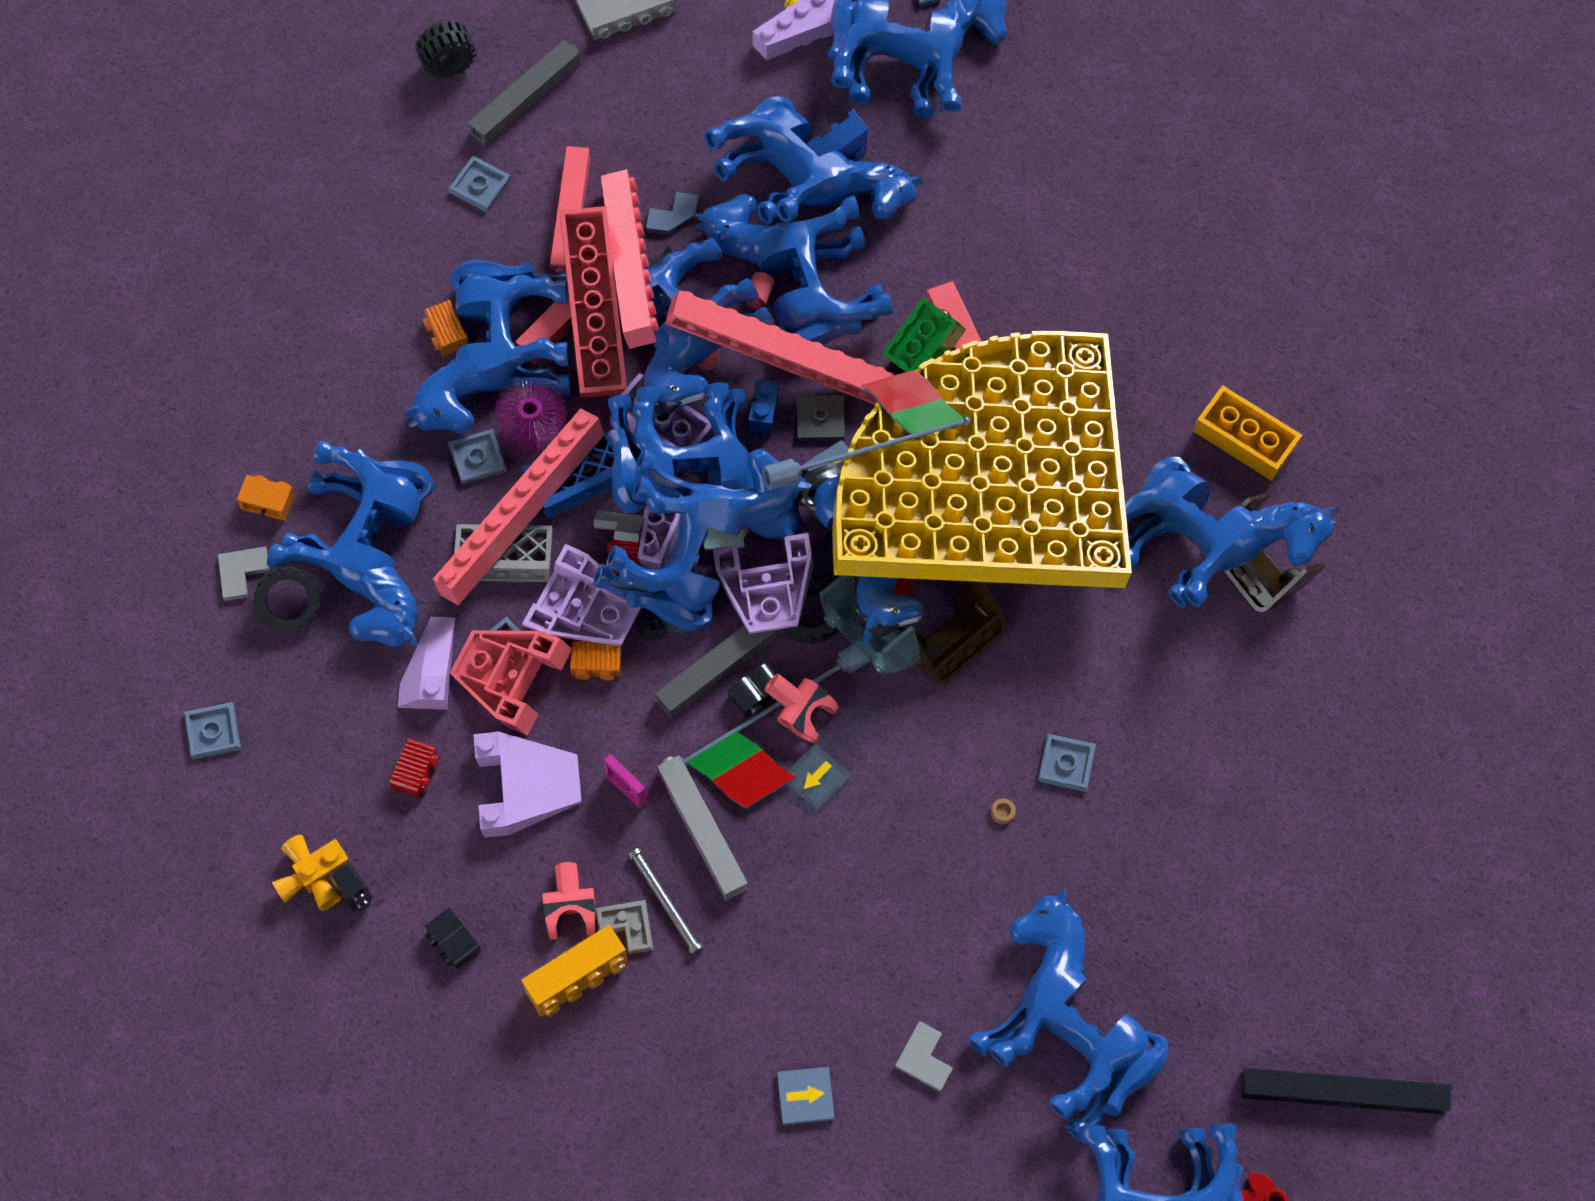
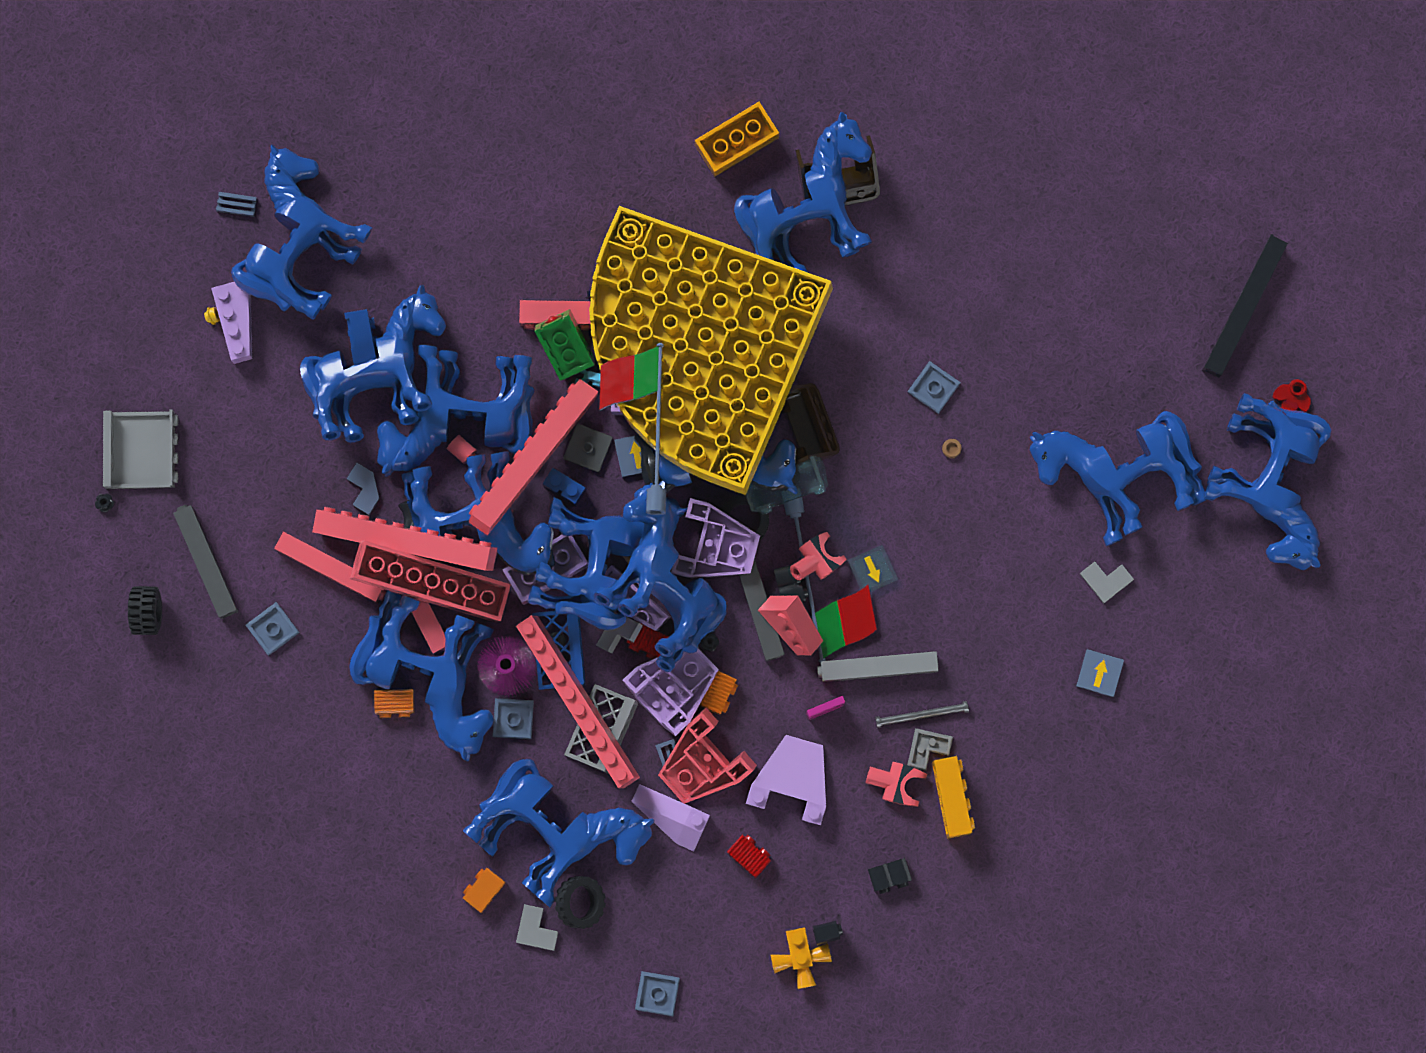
camera: 65 degrees left, 15 degrees up
(709, 704) = (792, 623): none -> coral wedge

